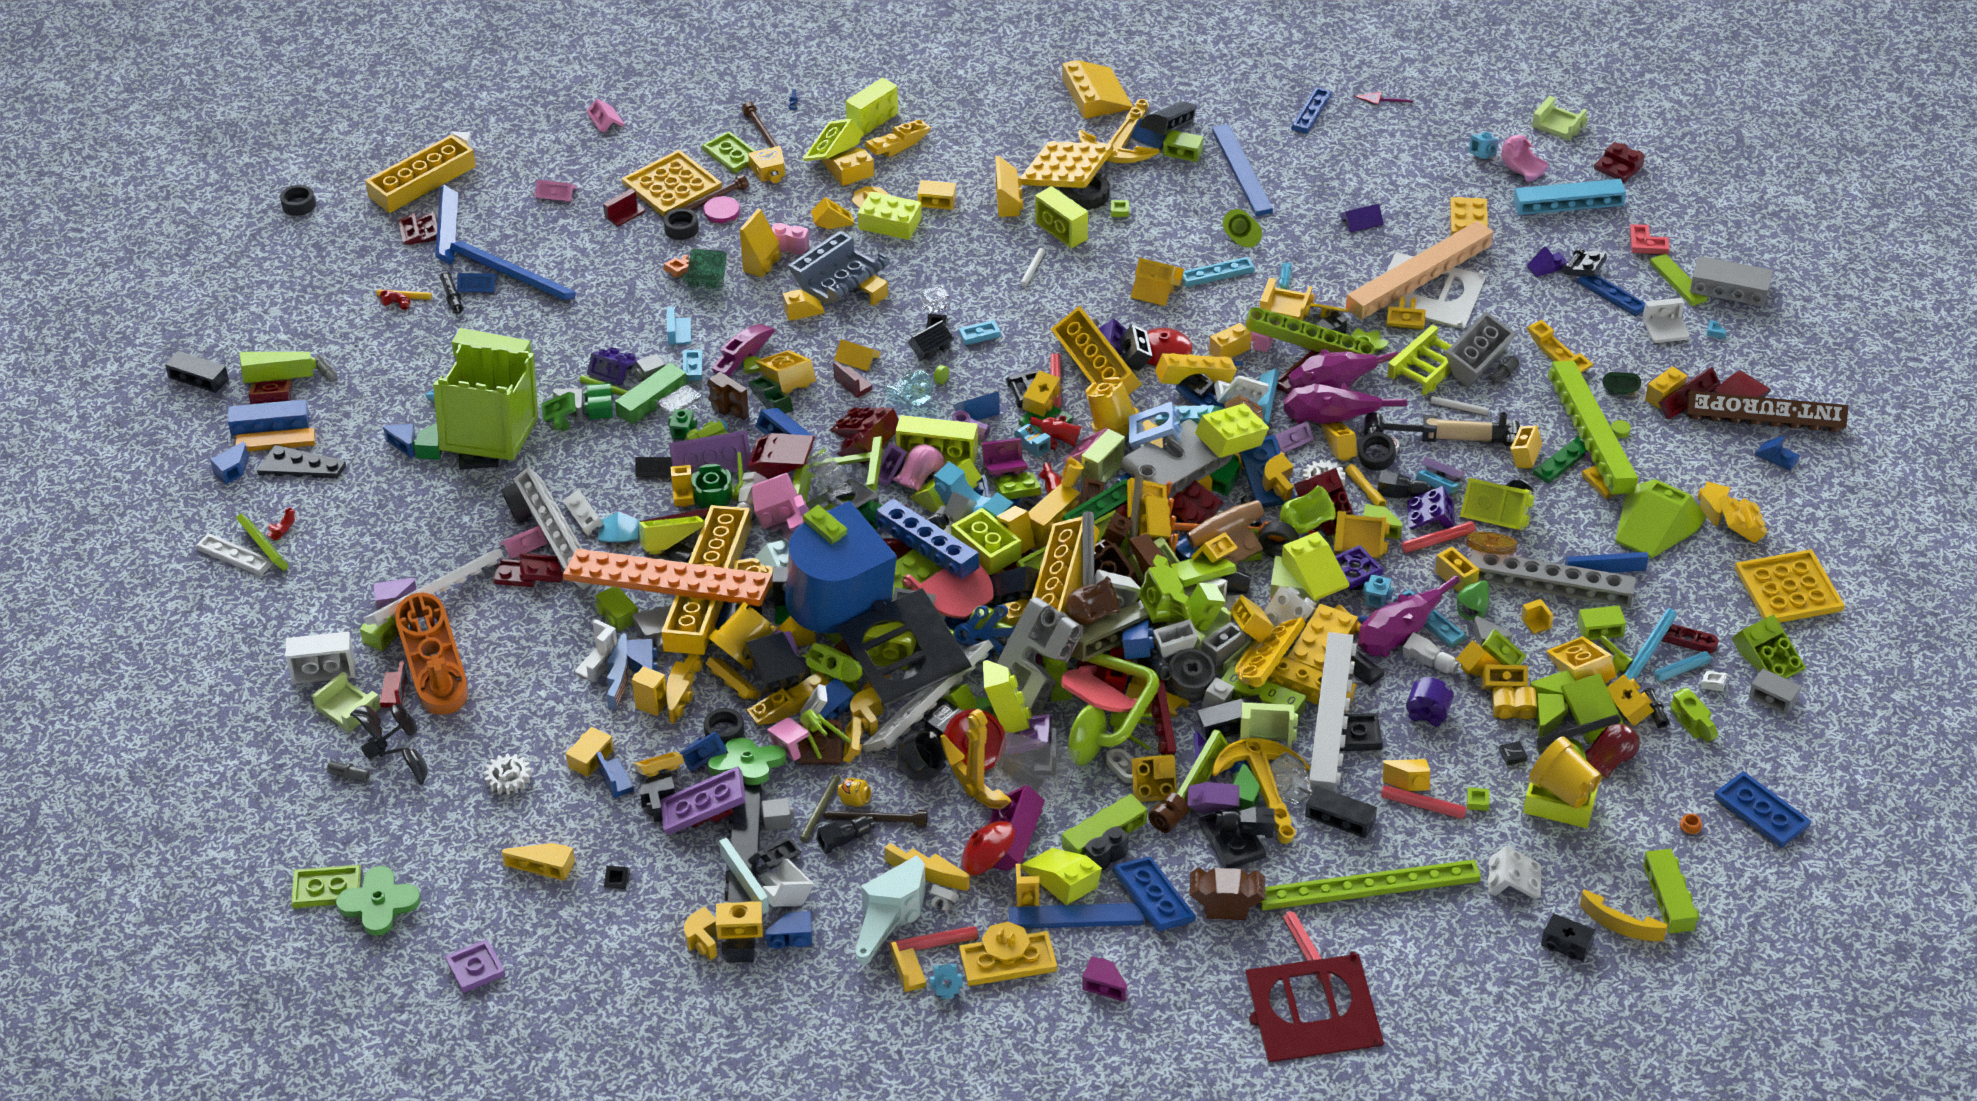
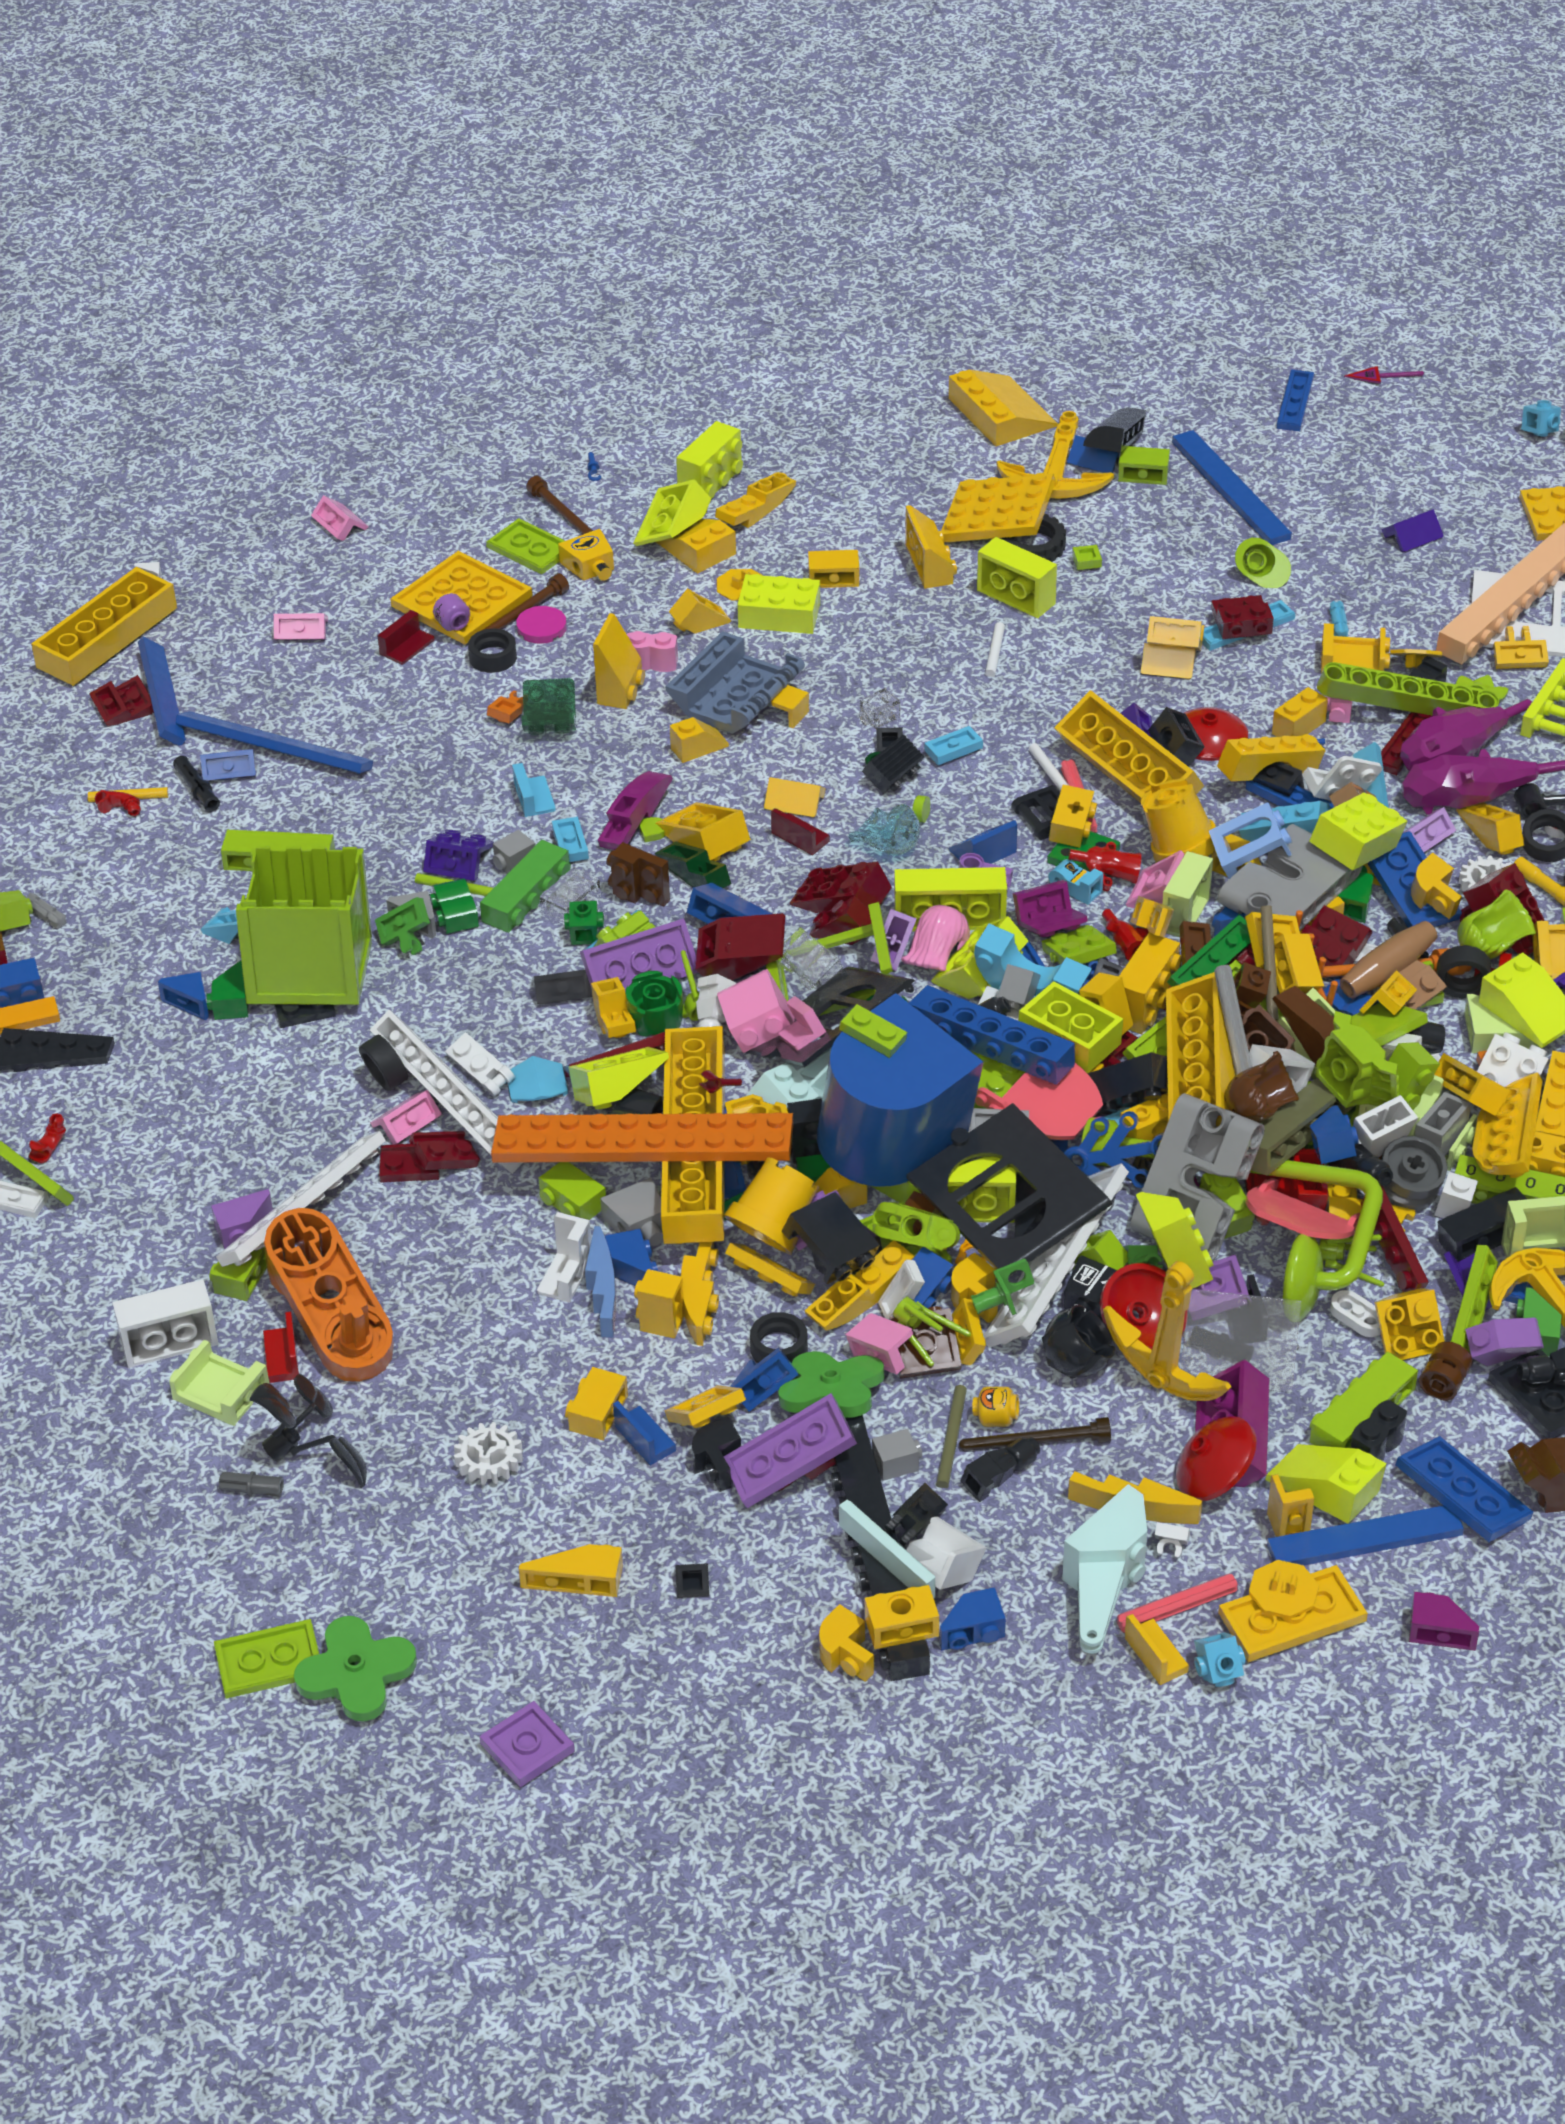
camera: 10 degrees left, 0 degrees up
(658, 193) = (451, 612): none -> medium lavender head
(728, 546) = (715, 1083): none -> dark red hand
(881, 713) = (1003, 1288): none -> bright green bracket
(1040, 355) = (1047, 765): none -> white bar
(1214, 265) = (1242, 616): none -> dark red plate

